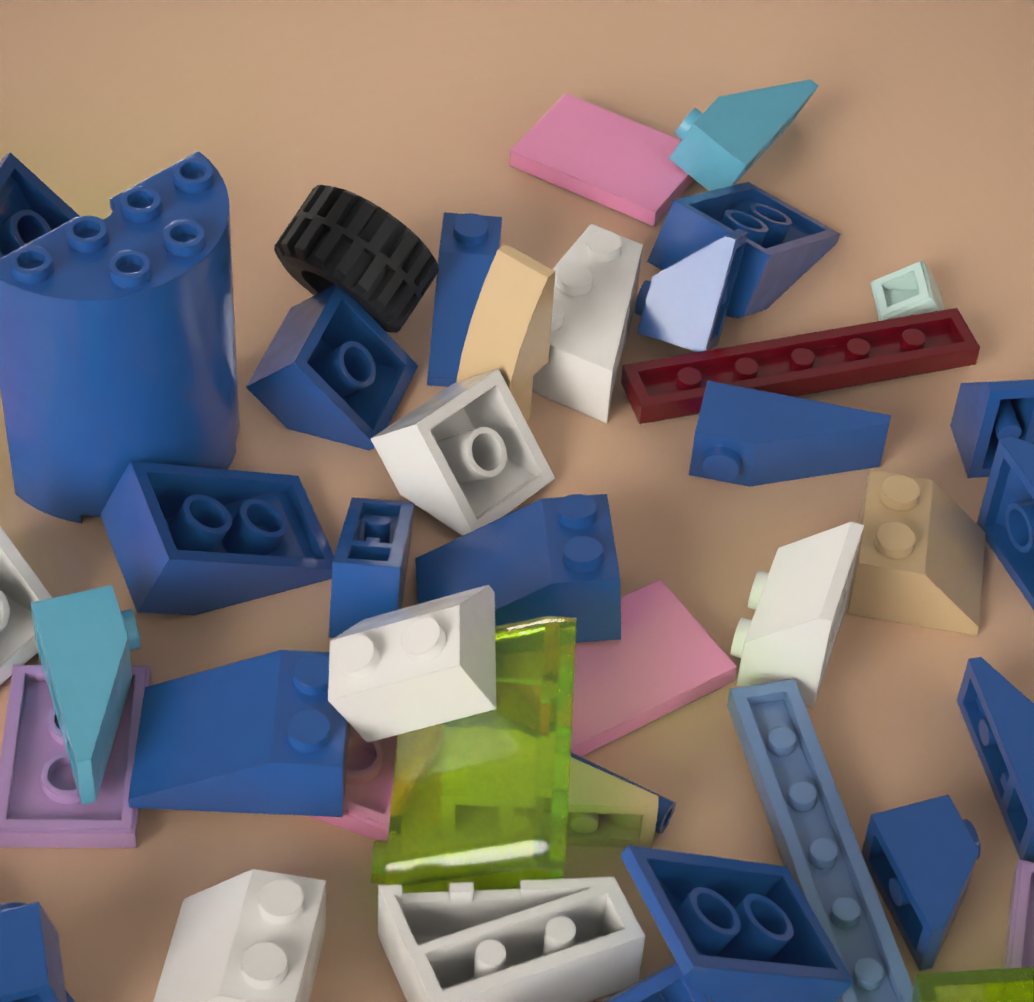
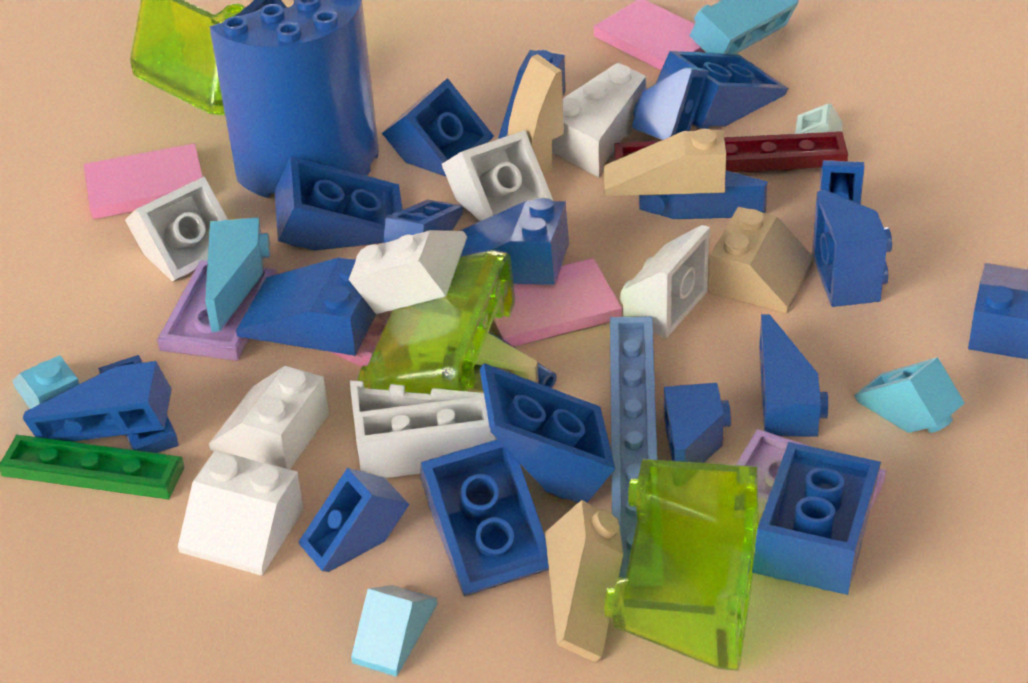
camera: 20 degrees right, 5 degrees down
(360, 250) = (467, 64): black tyre -> none
(754, 410) = (677, 165): none -> tan slope

